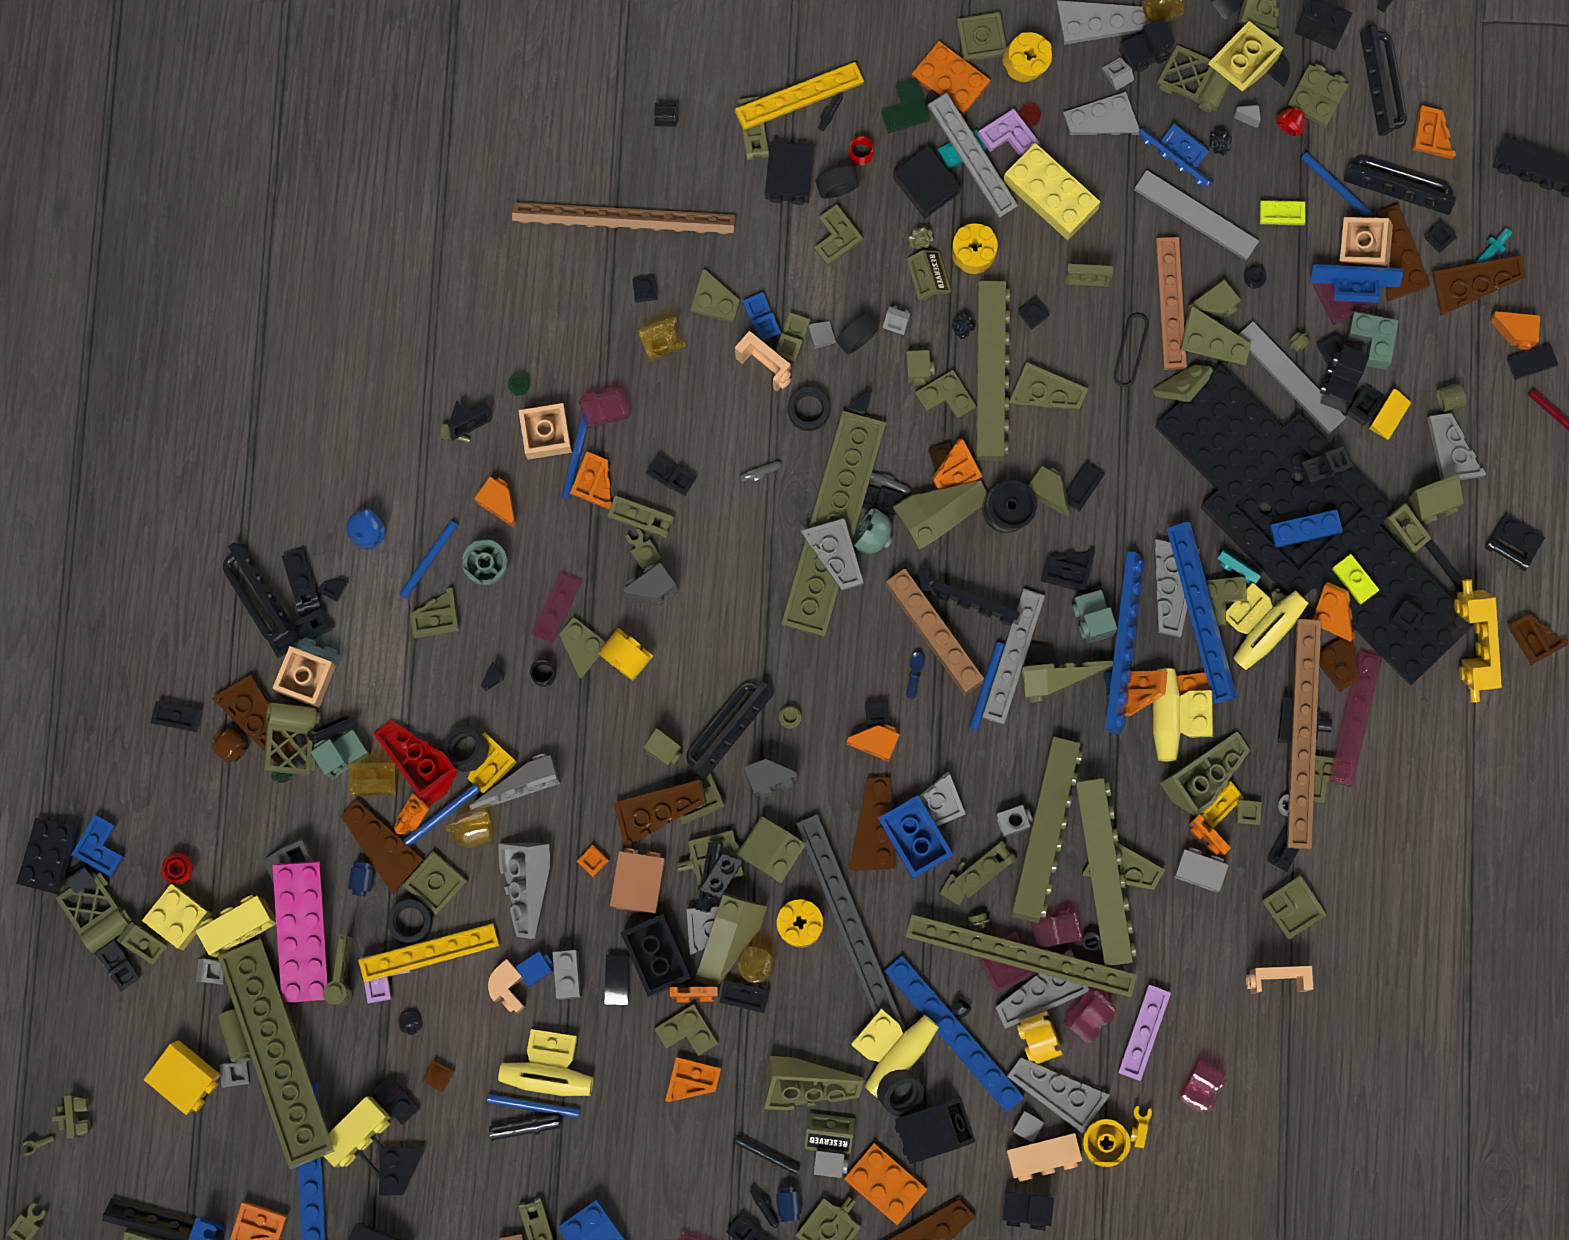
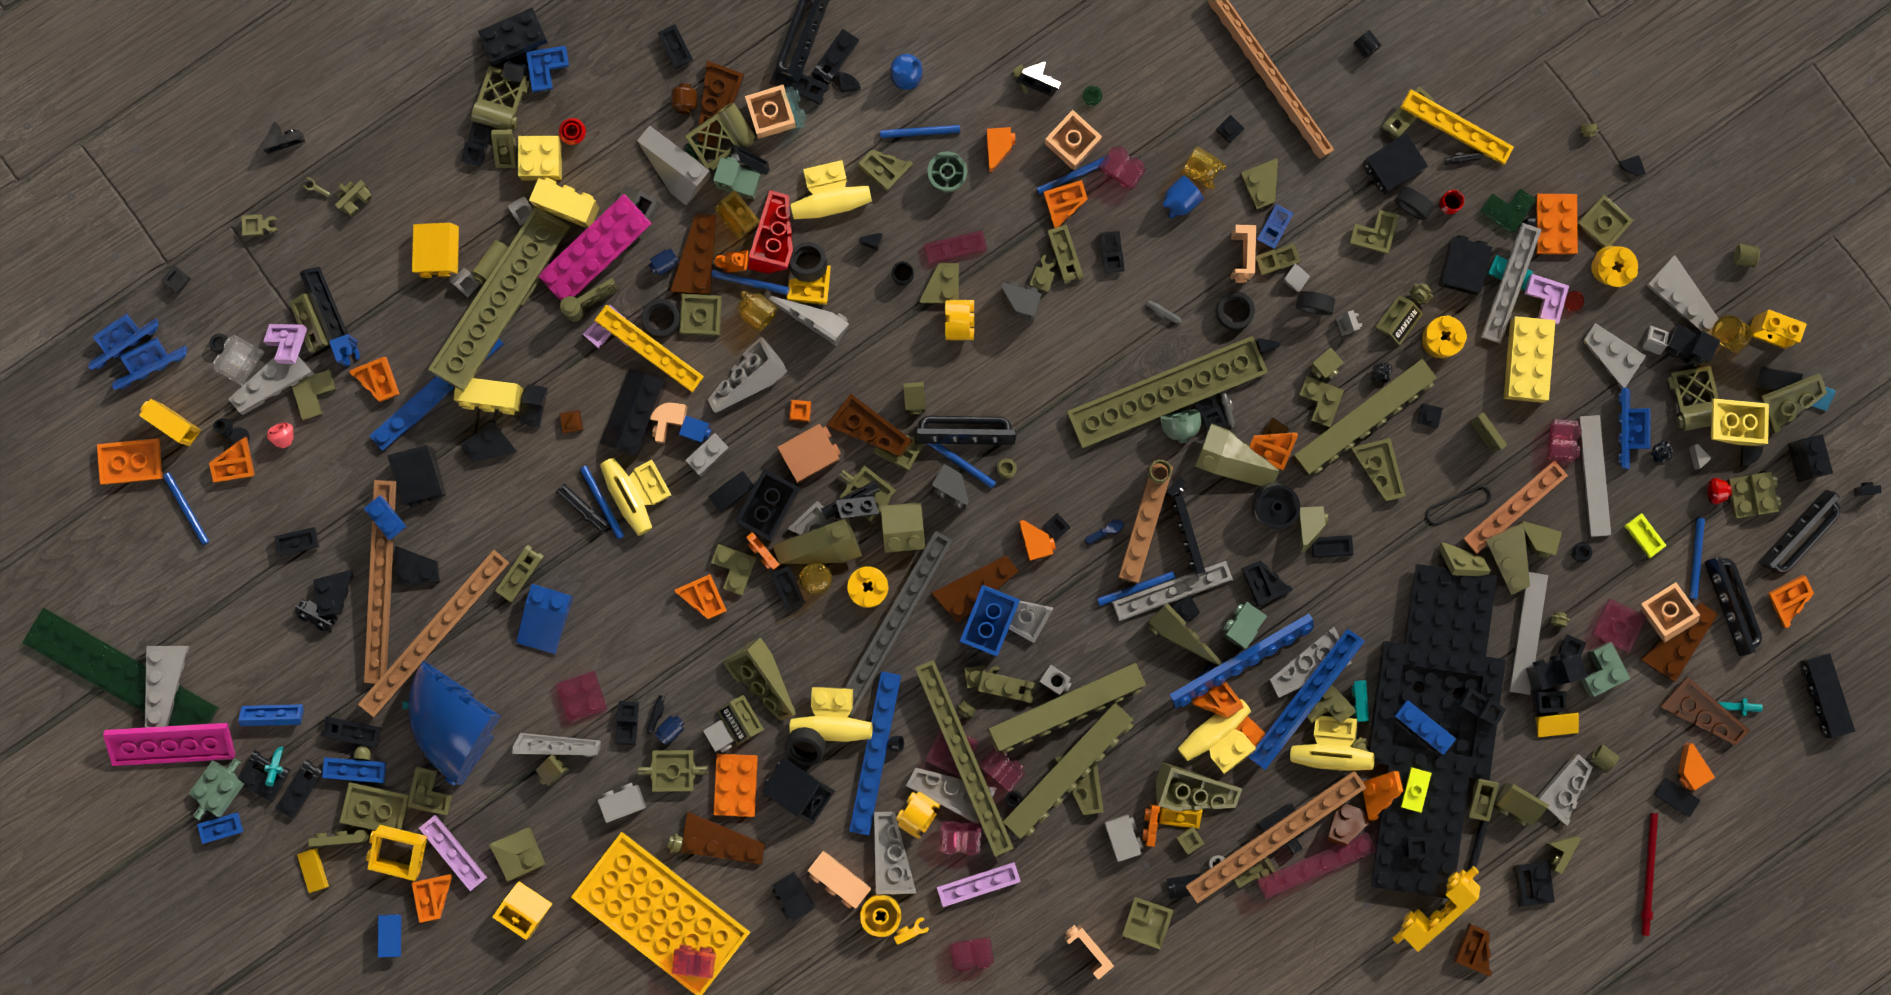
camera: 45 degrees right, 5 degrees up
(285, 801) = (675, 167): none -> light grey wedge
(410, 1022) = (593, 373): black piece -> none
(418, 682) = (829, 193): none -> light yellow plate
(474, 1013) = (633, 412): none -> black slope
(672, 376) = (1182, 197): none -> blue piece
(757, 752) = (963, 464): none -> blue bar
(767, 1155) = (692, 688): black bar -> none
(835, 550) = (1148, 407): light grey wing -> none
(900, 572) = (1157, 462): none -> olive piece
(1028, 1127) = (851, 853): light grey slope -> none
(1145, 217) = (1564, 440): none -> clear pink brick
(1356, 282) = (1634, 627): blue bracket -> none
(1440, 237) = (1717, 662): black plate -> none
(1506, 490) = (1566, 847): none -> olive slope

